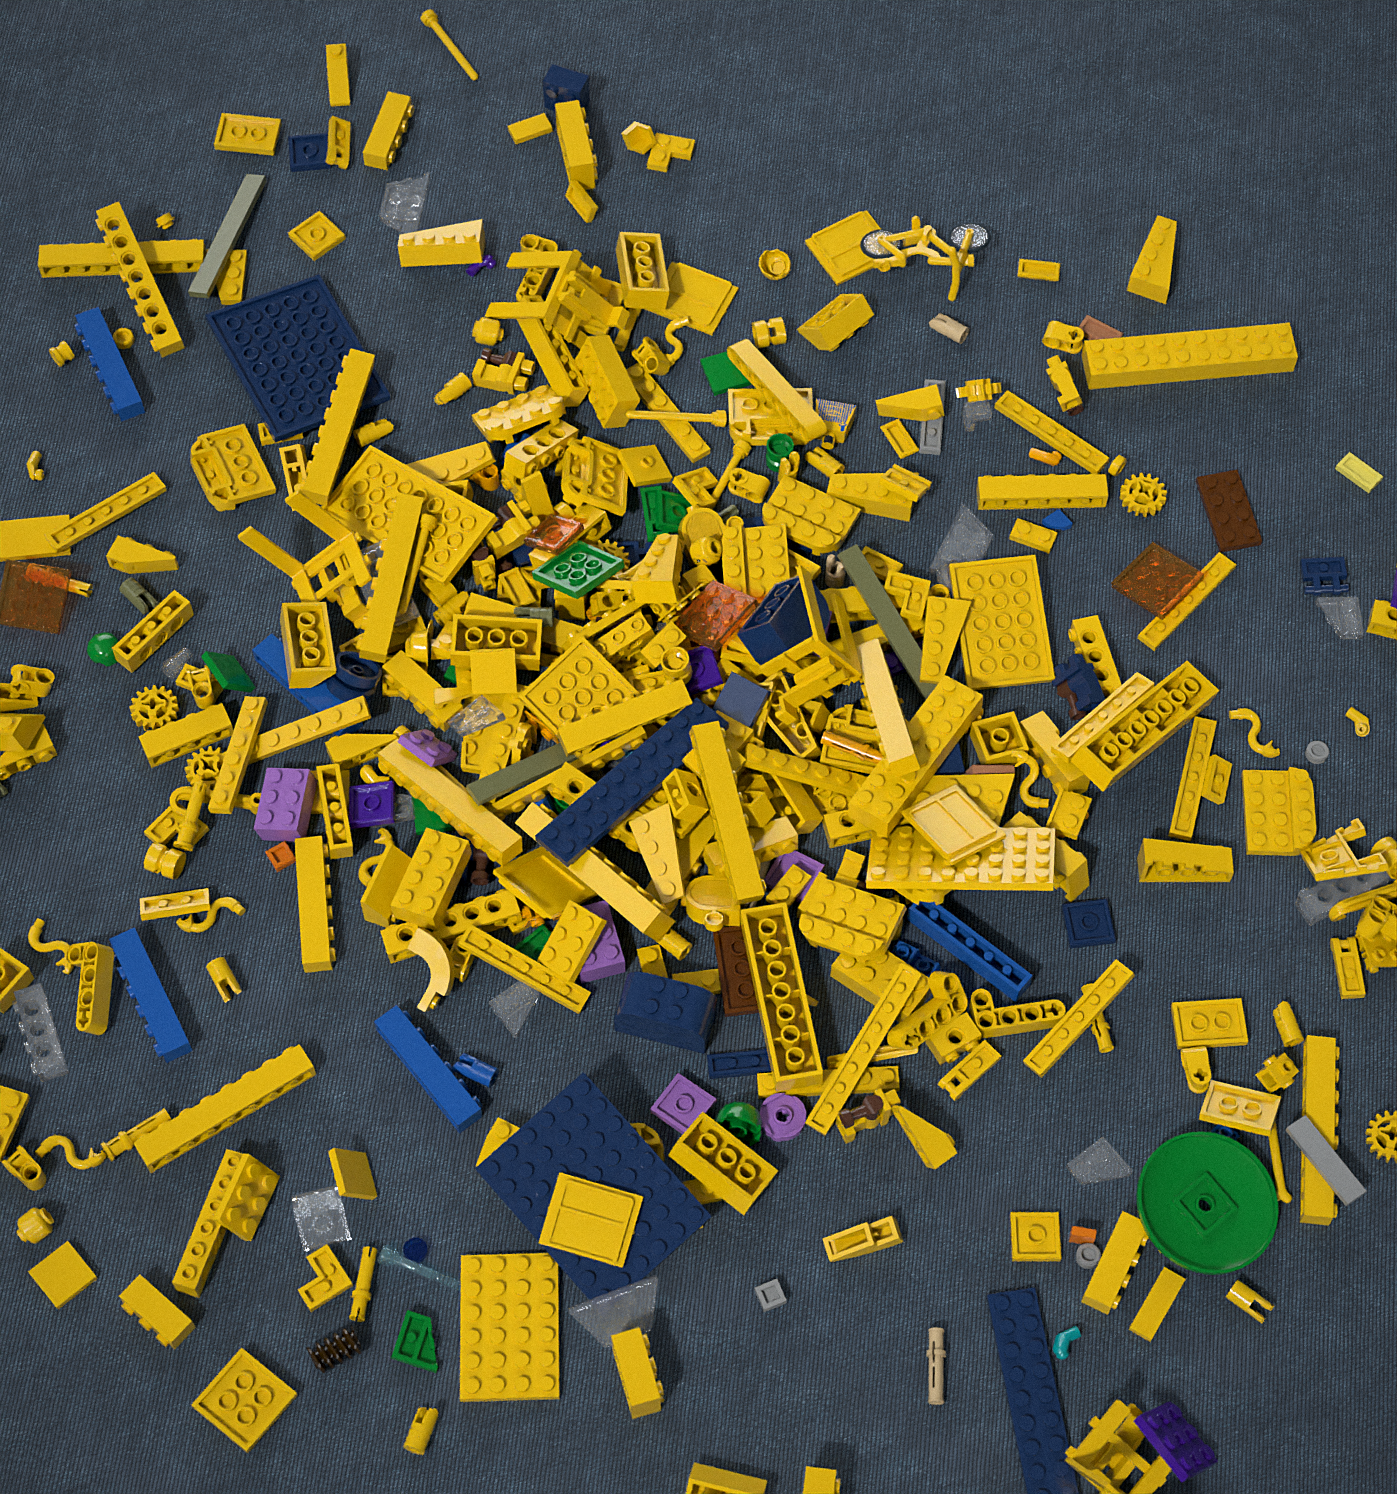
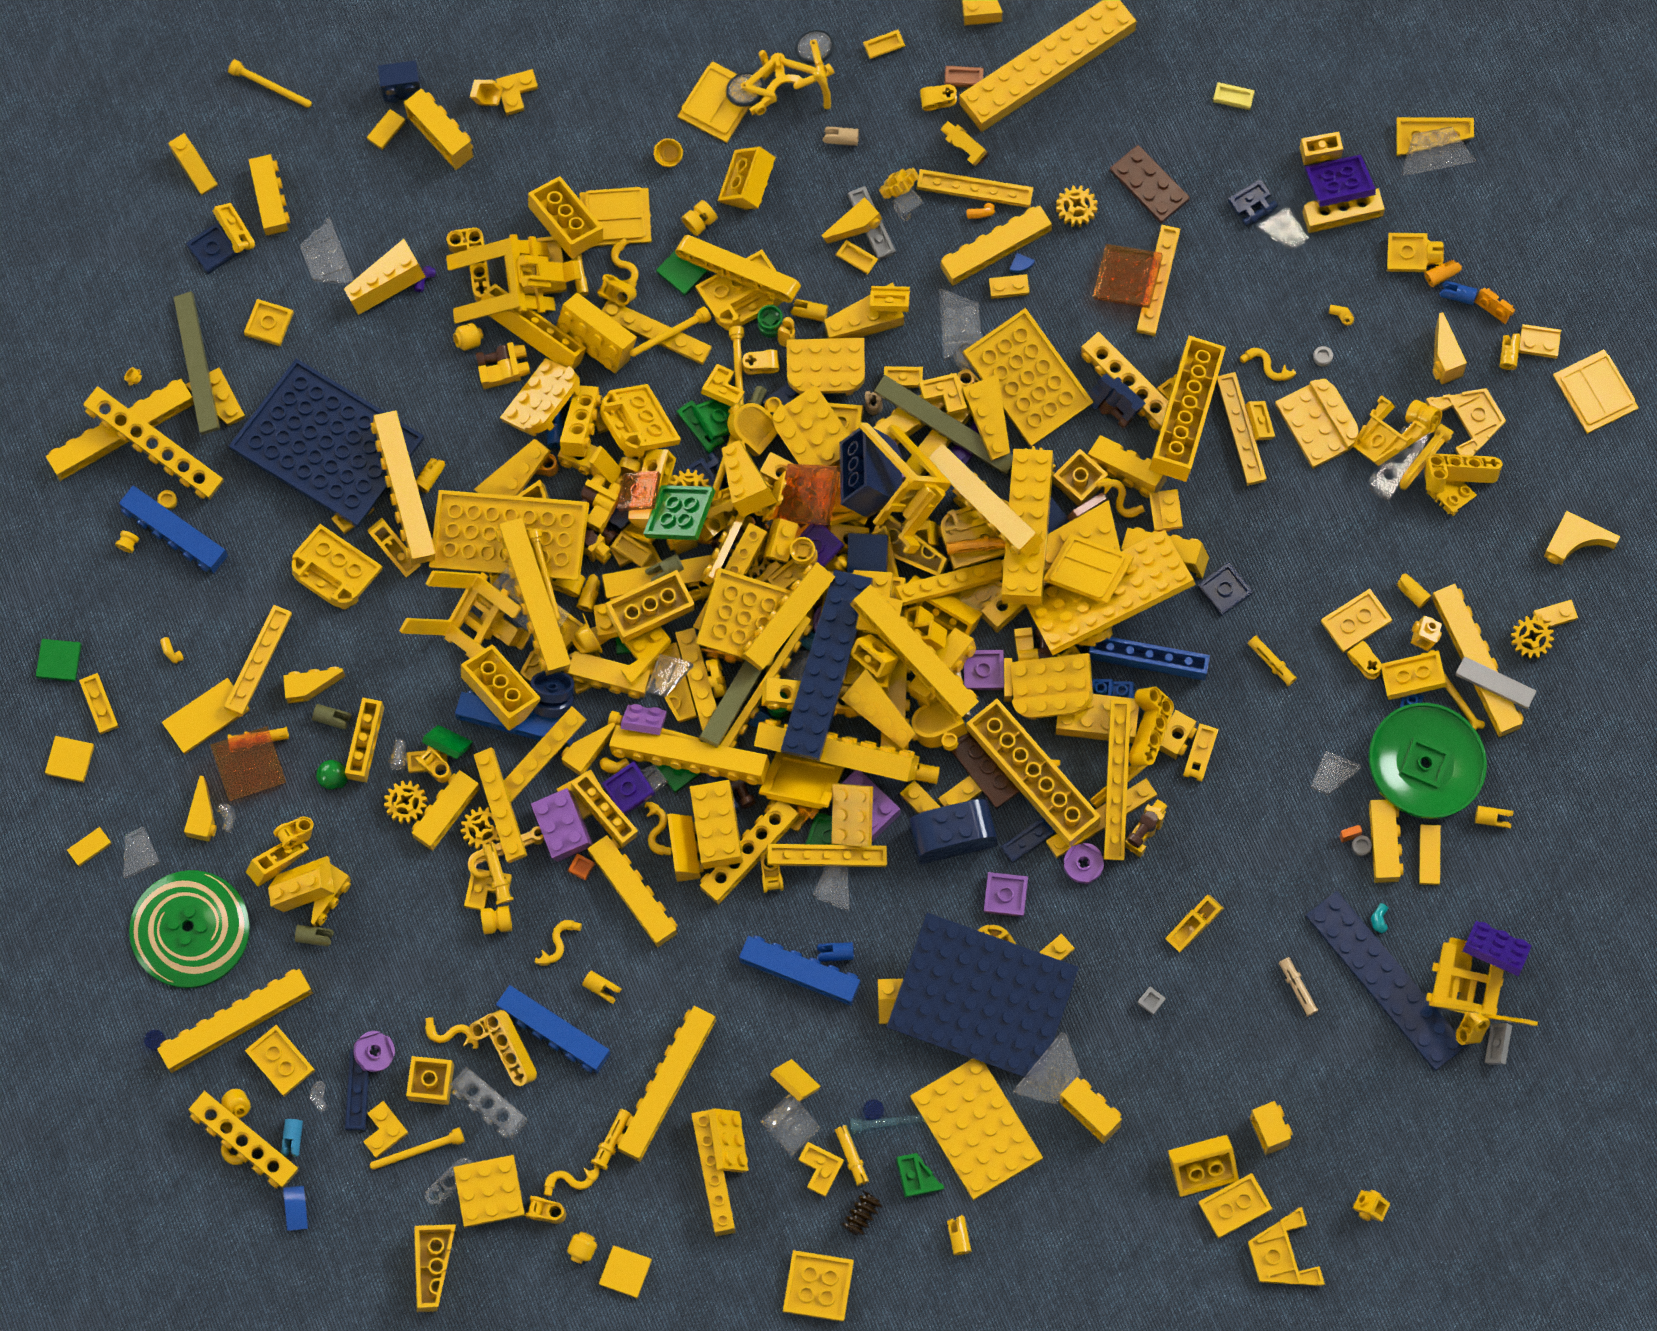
camera: 25 degrees left, 10 degrees up
(156, 1312) = (713, 1260): yellow brick -> none
(175, 904) = (525, 949): yellow plate -> none
(247, 134) = (150, 259): yellow plate -> none
(440, 963) = (755, 880): yellow arch -> none
(453, 389) = (471, 403): yellow hinge -> none
(493, 671) = (663, 632): yellow tile -> none
(581, 201) = (472, 176): yellow tile -> none
(591, 1220) = (994, 1018): yellow piece -> none
(644, 465) = (668, 389): yellow plate -> none
(705, 551) = (766, 441): yellow head -> none
(723, 1163) = (1063, 923): yellow brick -> none
(741, 1121) = (1055, 886): green cylinder -> none
(789, 886) = (988, 683): yellow plate -> none
(838, 421) = (798, 267): yellow torso -> none
(930, 1142) = (1205, 825): yellow slope -> none
(1016, 1013) = (1211, 690): yellow beam -> none
(1035, 1236) = (1316, 852): yellow tile -> none
(1078, 1018) = (1260, 669): yellow plate -> none
(1103, 714) = (1151, 418): yellow plate -> none
(1117, 465) = (1043, 190): yellow tile -> none
(1183, 862) = (1272, 502): yellow wedge -> none
(1348, 968) = (1434, 521): yellow plate -> none

